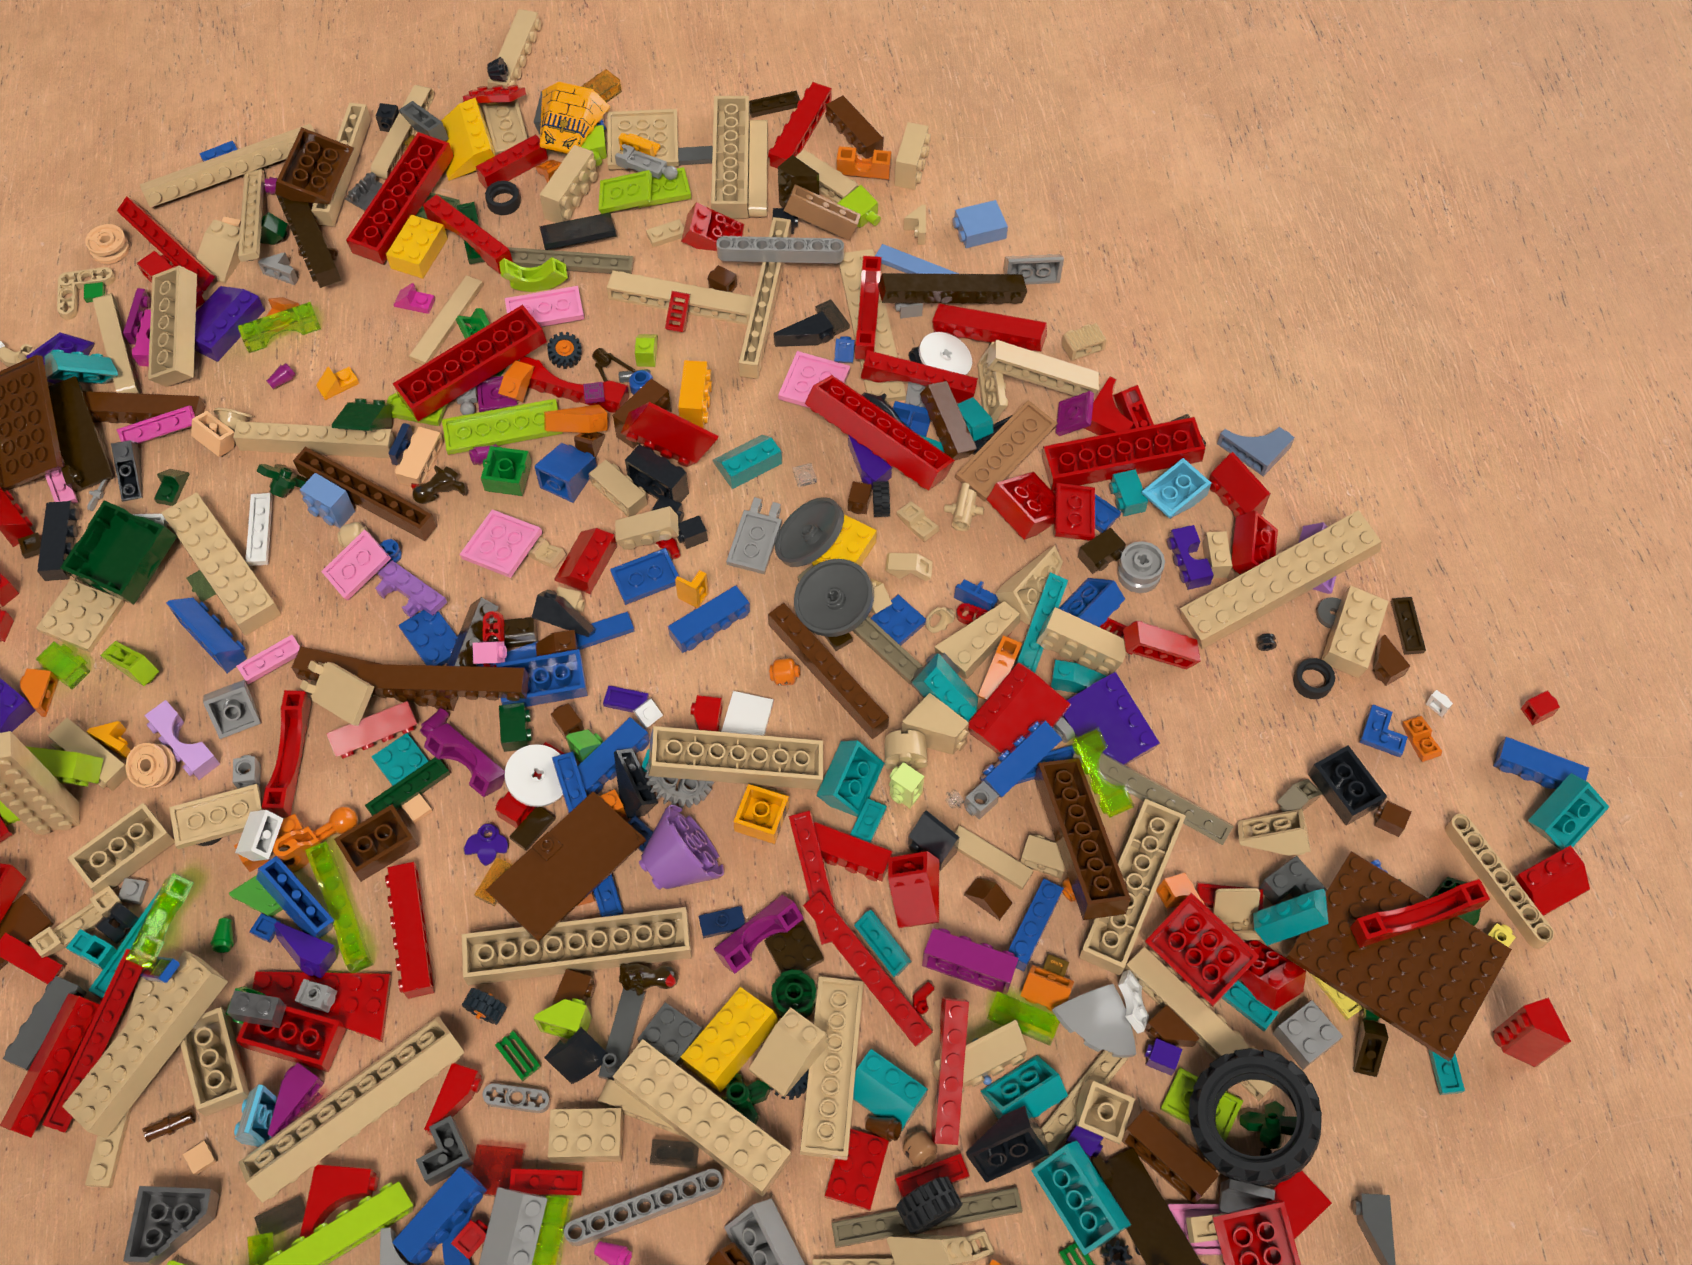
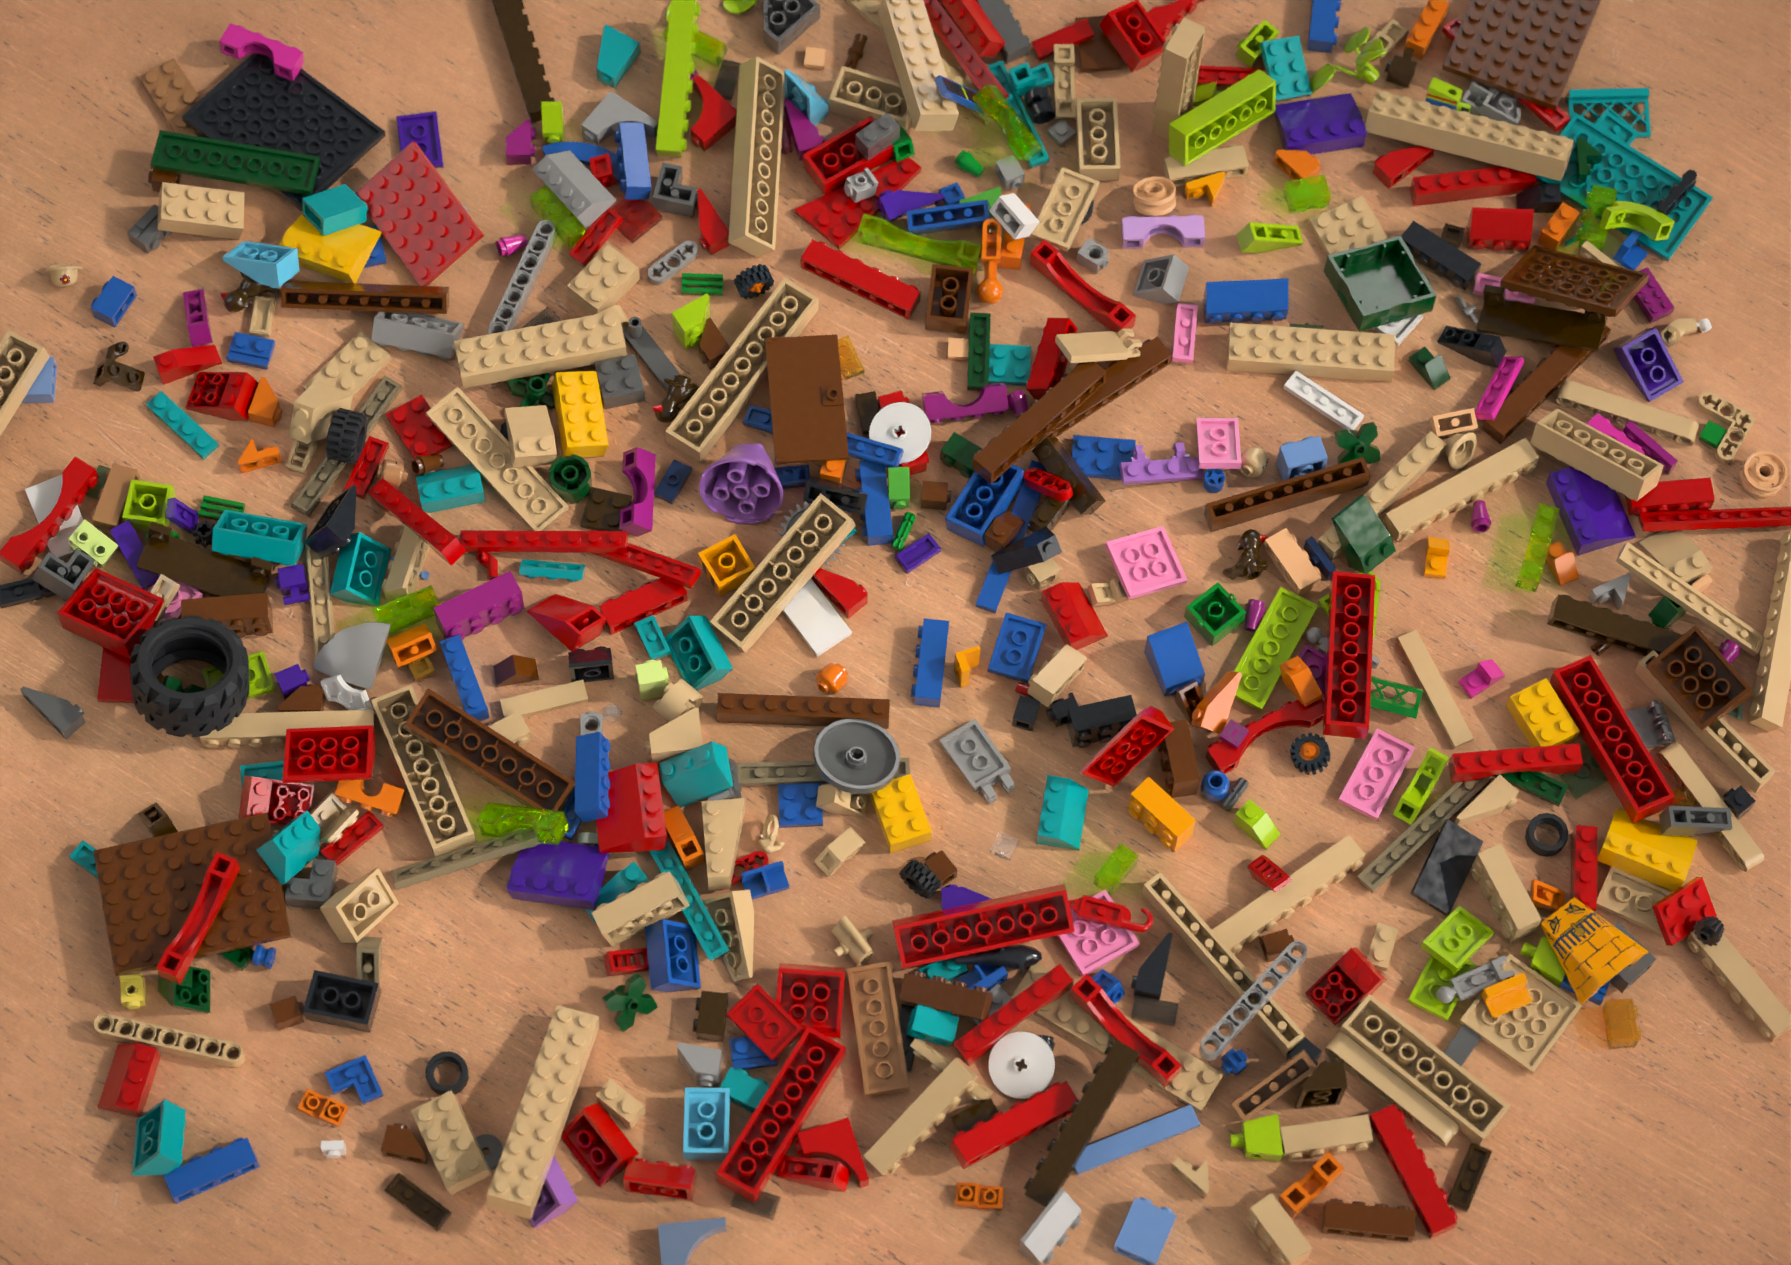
camera: 130 degrees right, 5 degrees up
(85, 367) = (1606, 359): teal slope -> none
(208, 895) = (1010, 172): none -> light grey brick
(264, 397) = (1460, 490): none -> tan brick
(486, 847) = (881, 373): dark purple plate -> none
(489, 652) = (1036, 469): bright pink brick -> none
(511, 236) = (1489, 802): none -> tan slope
(577, 1056) = (659, 311): black slope -> none
(603, 359) = (1275, 779): dark brown plant -> none
(614, 722) = (903, 531): none -> green axle
(618, 488) = (1138, 685): tan brick -> none
(648, 713) = (889, 556): white plate -> none
(758, 398) = (1116, 869): none -> clear neon green brick
(794, 373) = (1108, 913): none -> red plate
(809, 532) = (936, 790): dark grey dish -> none
(917, 522) = (877, 899): tan slope -> none
(1055, 325) = (979, 1197): none -> orange slope
(1075, 413) = (860, 1115): magenta tile -> none
(1083, 341) = (929, 1201): tan brick -> none
(1103, 1111) = (295, 600): tan slope -> none
(1140, 520) = (701, 1063): none -> light grey slope
(1140, 567) = (663, 1017): light grey wheel -> none
(1148, 605) = (628, 1000): none -> dark green plant
(1161, 645) = (579, 964): brick -> none
(1192, 571) = (625, 1070): dark purple arch -> none
(1266, 642) = (511, 1067): black bush -> none
(1307, 1034) = (208, 789): light grey brick -> none
(1532, 1033) = (52, 918): red slope -> none
(1540, 707) = (252, 1225): red brick -> none

